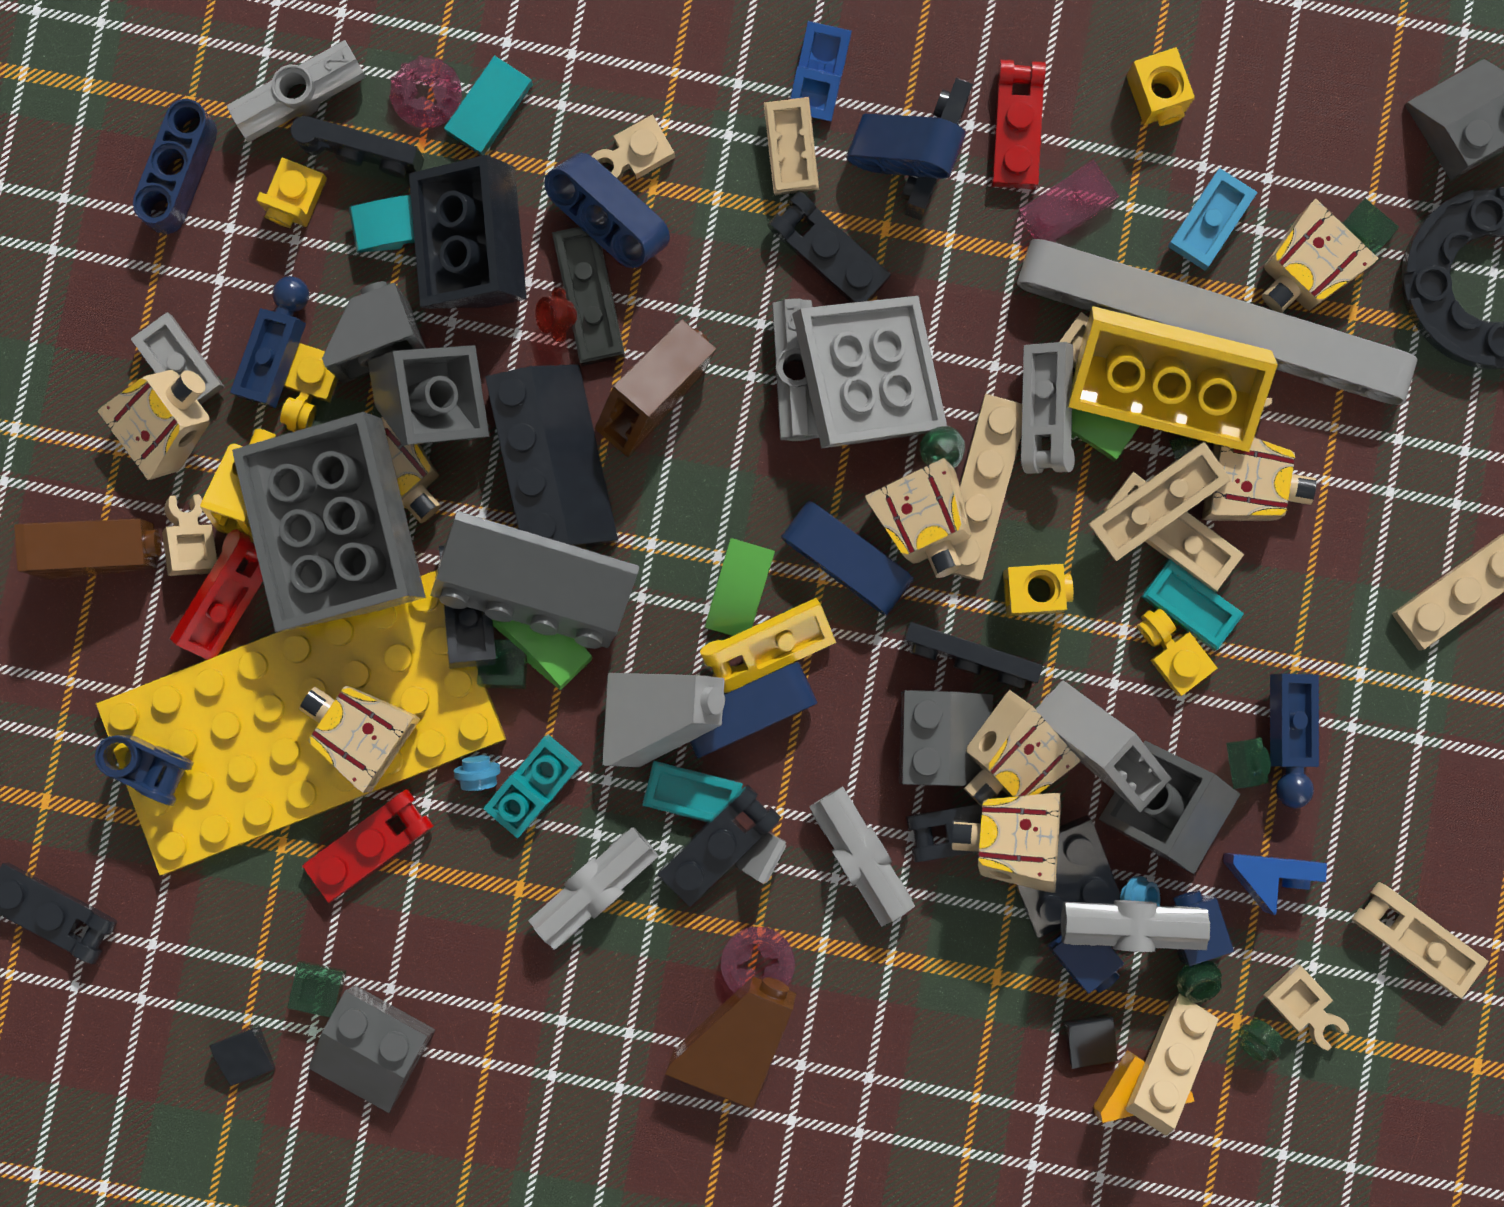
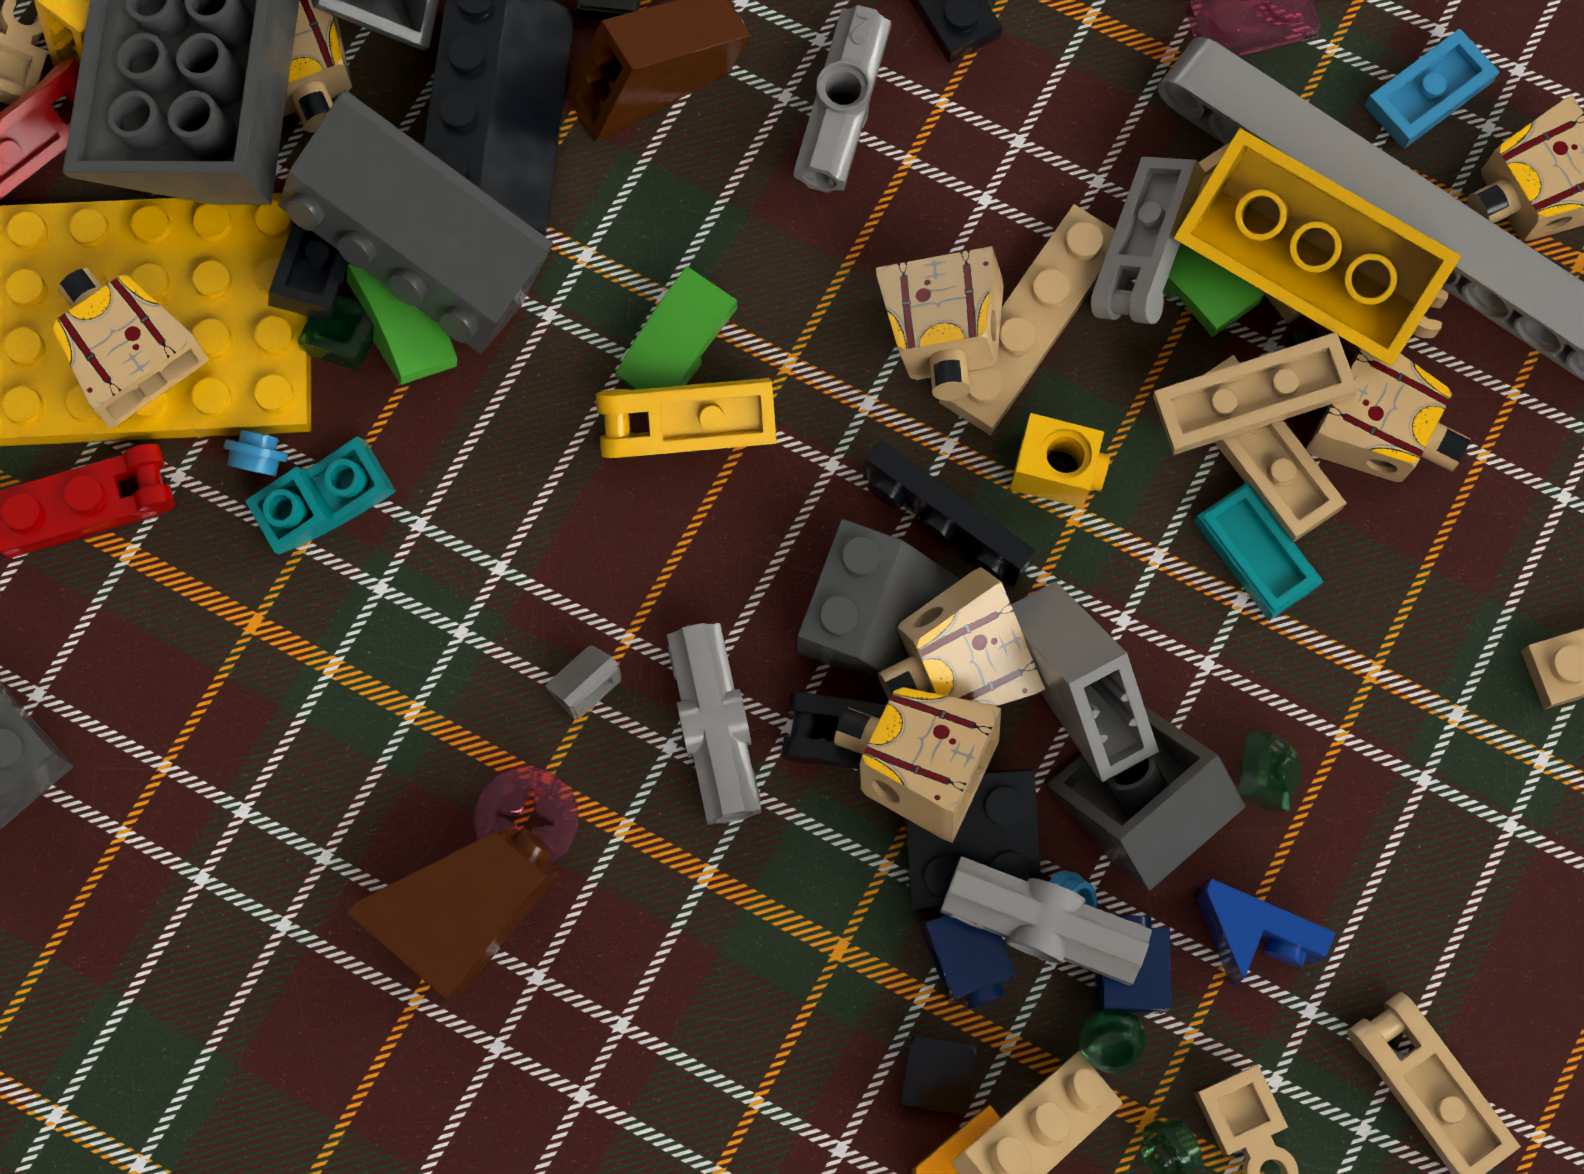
camera: 15 degrees right, 10 degrees down
(593, 888) = (347, 647): light grey piece -> none
(657, 714) = (512, 447): light grey slope -> none
(688, 792) = (522, 575): teal tile -> none
(717, 846) = (529, 646): black plate -> none
(758, 707) = (631, 488): dark blue beam -> none
(847, 558) = (828, 344): dark blue beam -> none
(869, 370) = (934, 122): light grey plate -> none
(942, 443) = (1007, 244): clear green plate -> none
(1182, 661) = (1219, 618): yellow plate -> none
(1294, 734) = (1343, 756): dark blue plate -> none

